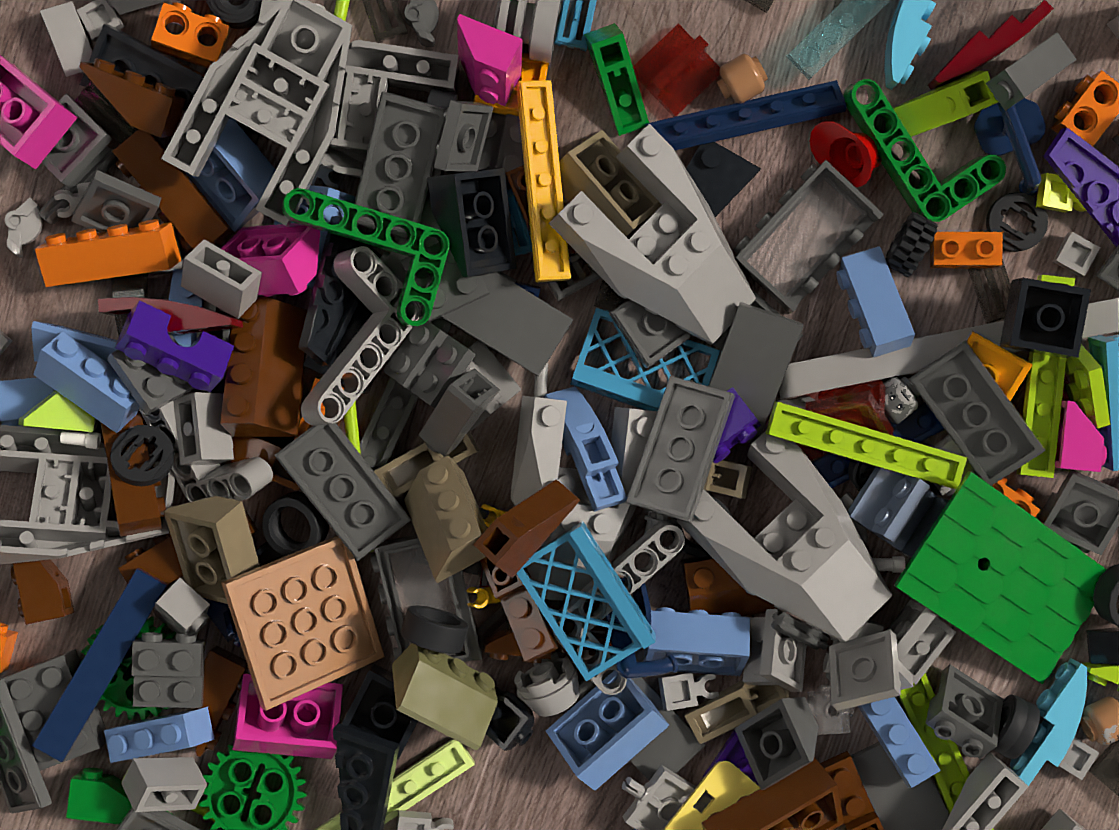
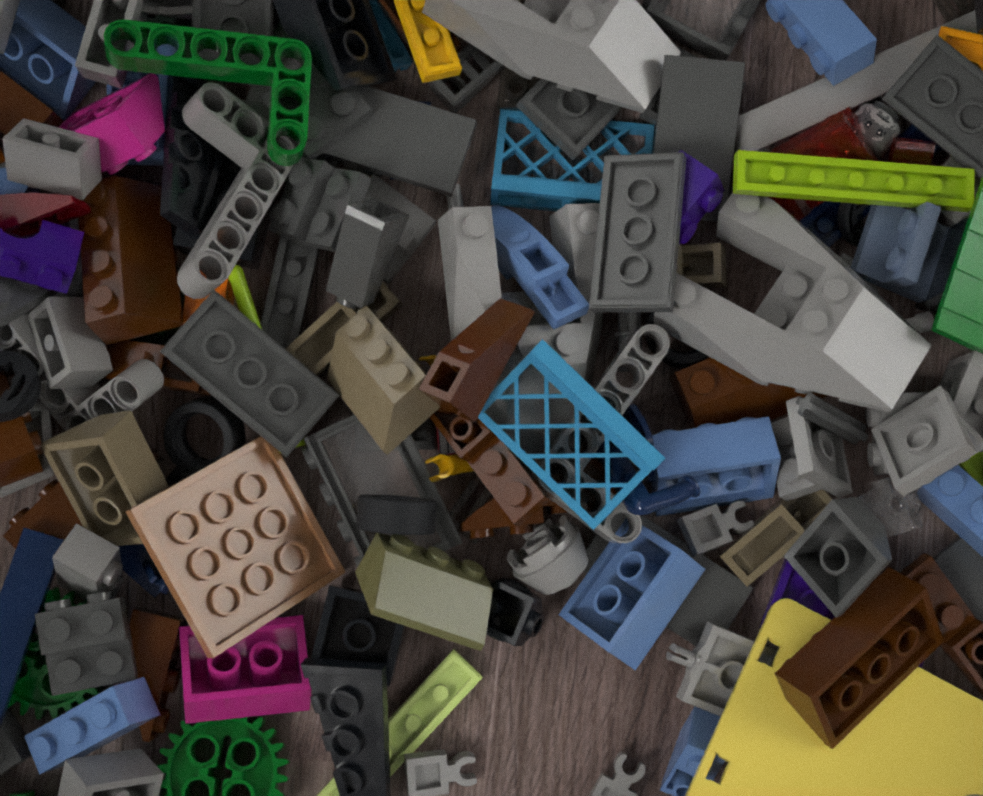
camera: 15 degrees left, 5 degrees down
(921, 429) = (911, 151): none -> clear red tile

